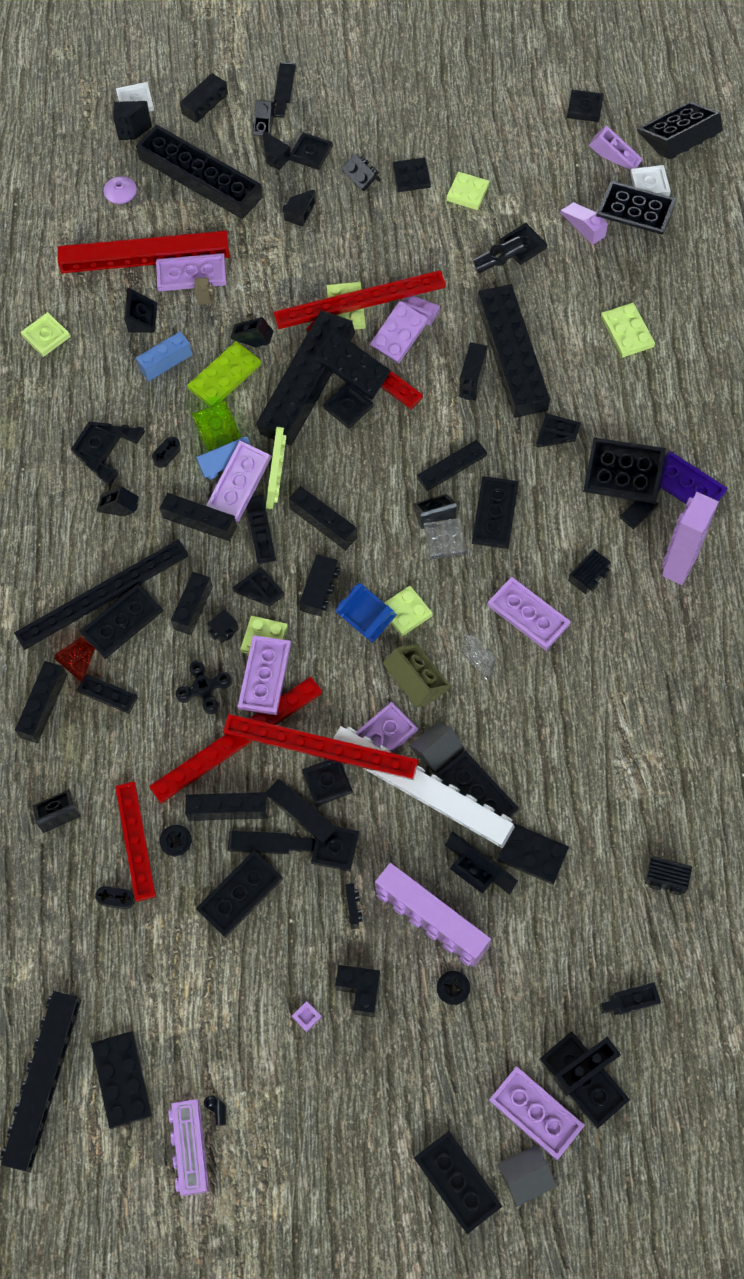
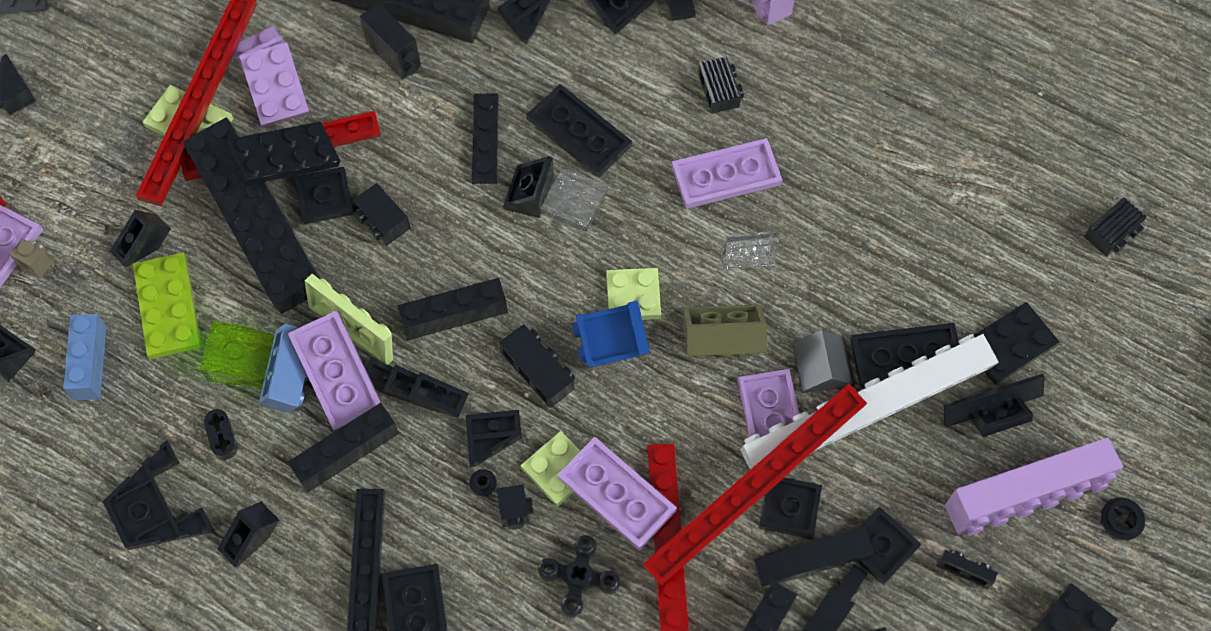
camera: 60 degrees left, 0 degrees up
(191, 603) = (457, 523): black brick -> none
(230, 606) = (486, 489): none -> black plate
(357, 442) = (380, 214): none -> black brick

